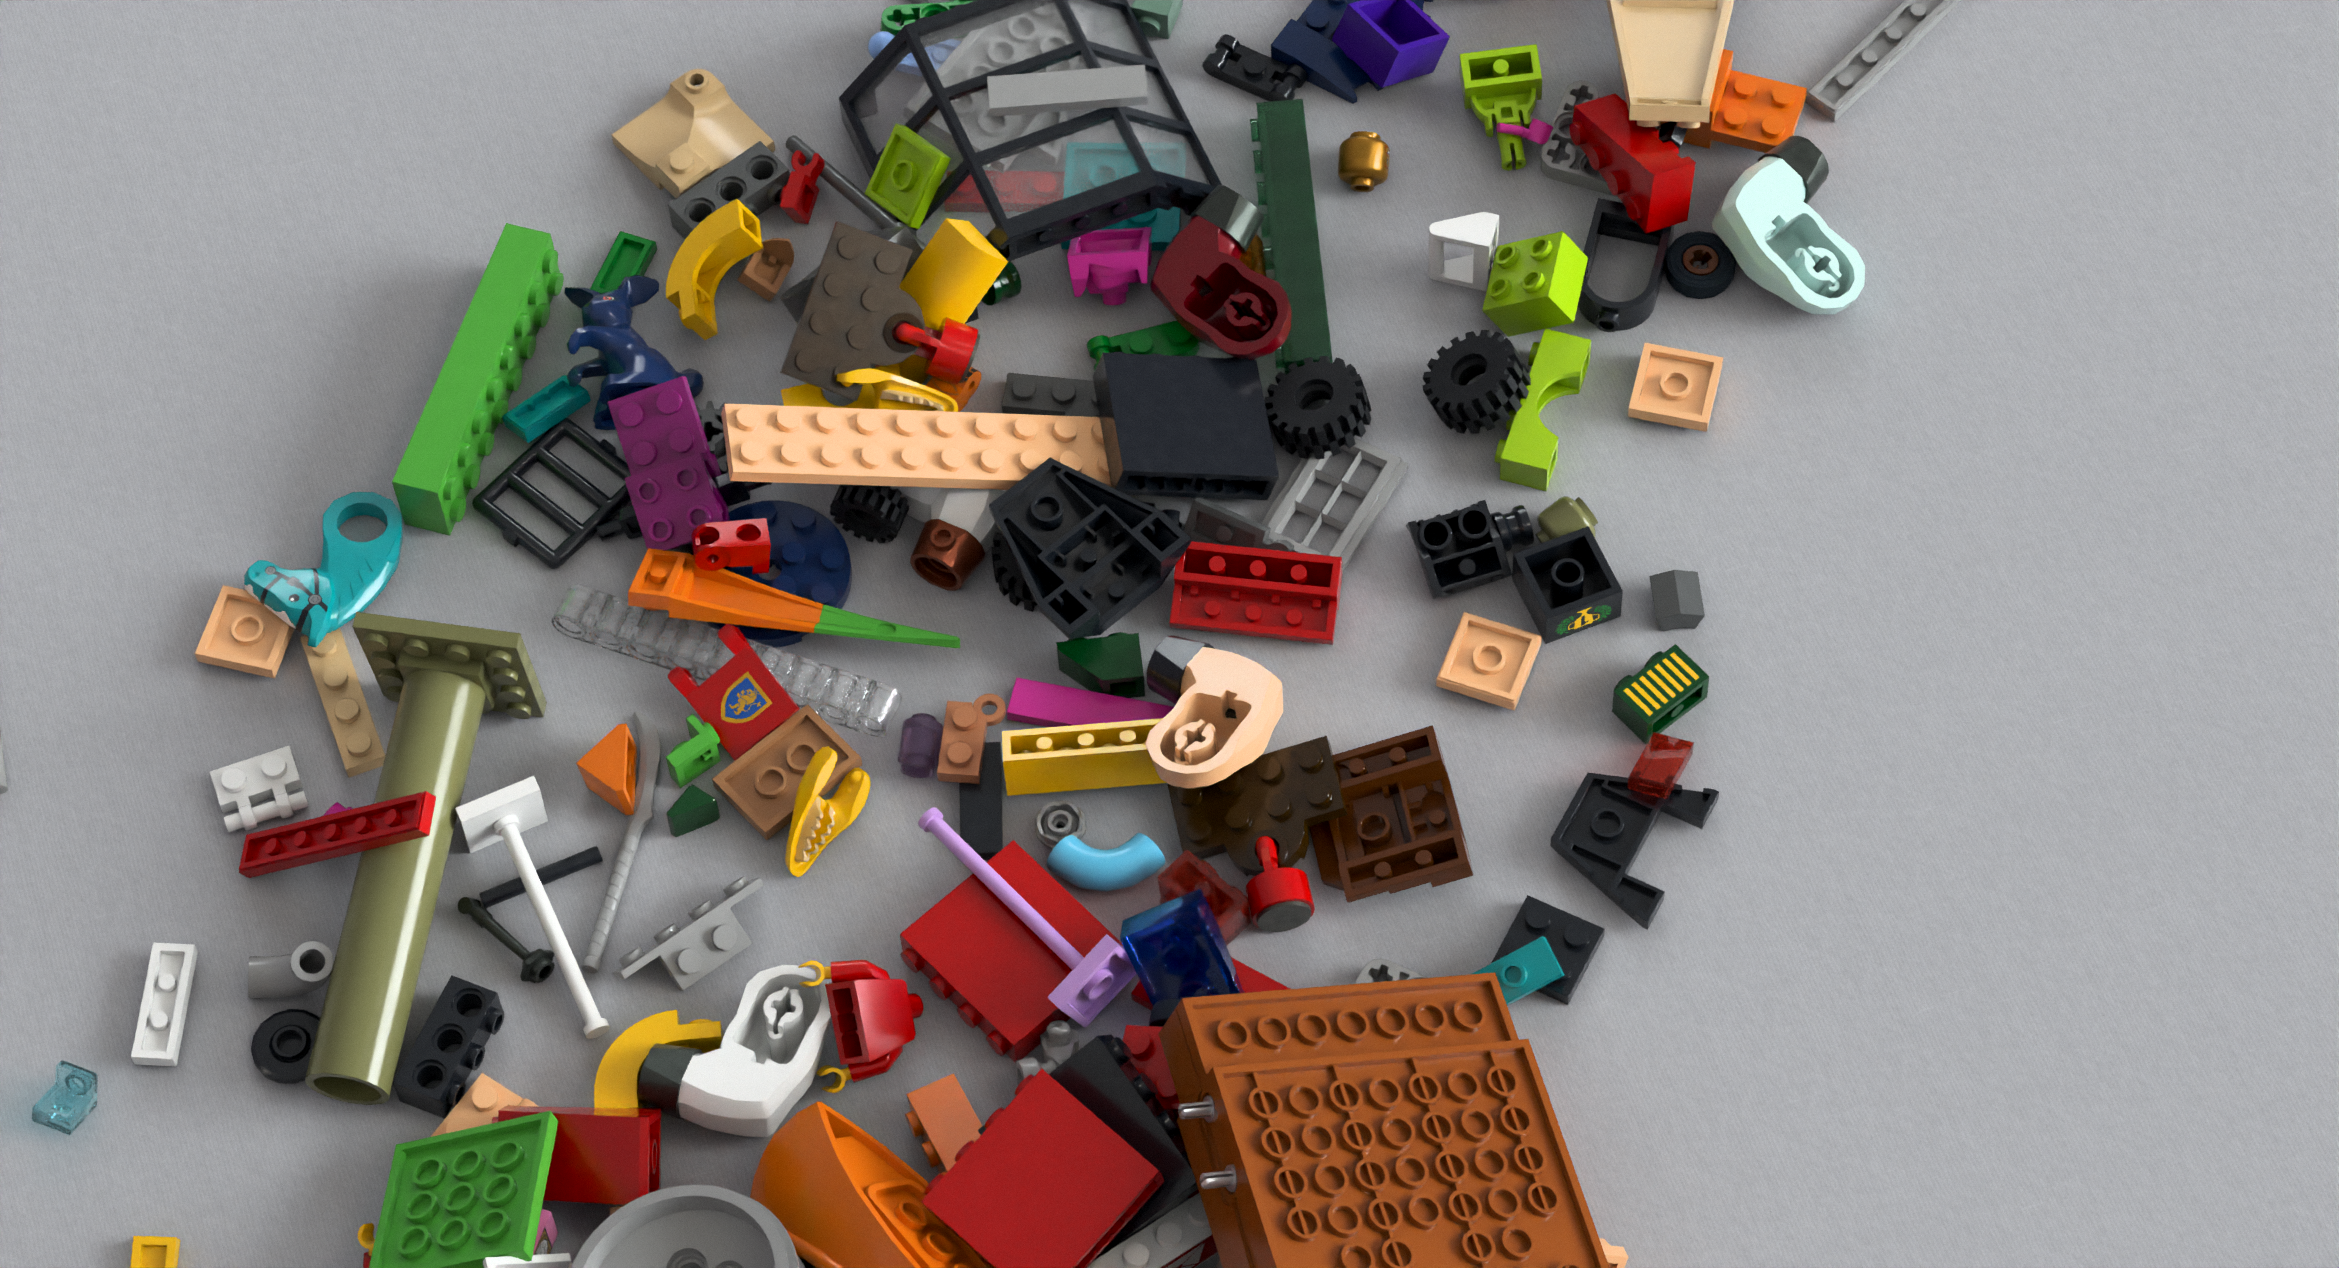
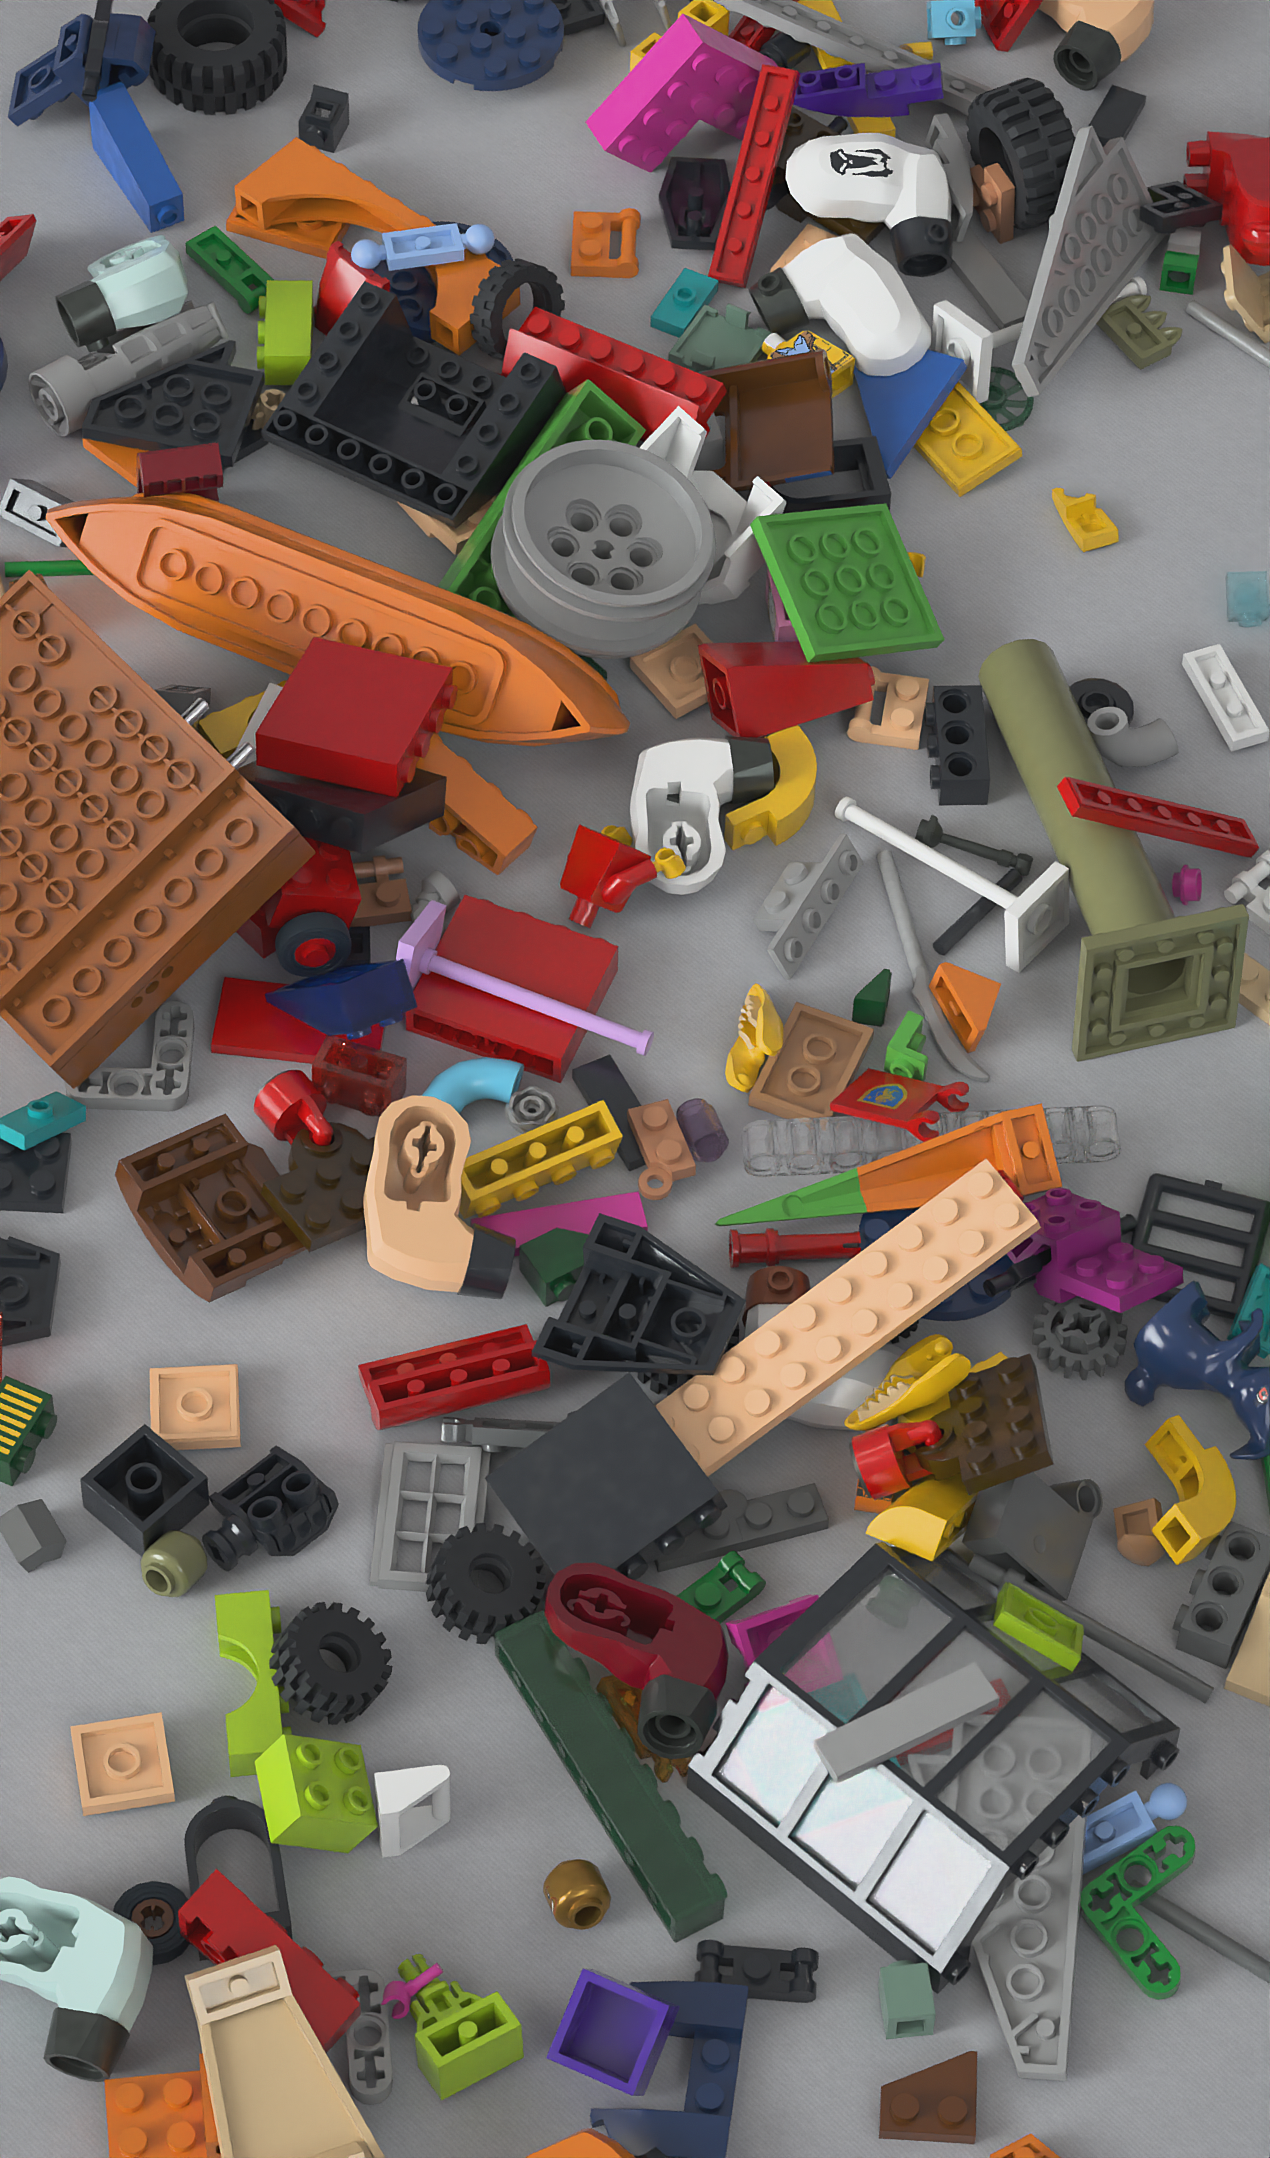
camera: 150 degrees right, 5 degrees down
(801, 192) = (1156, 1623): red plate -> none
(906, 613) = (772, 1247): none -> red pin

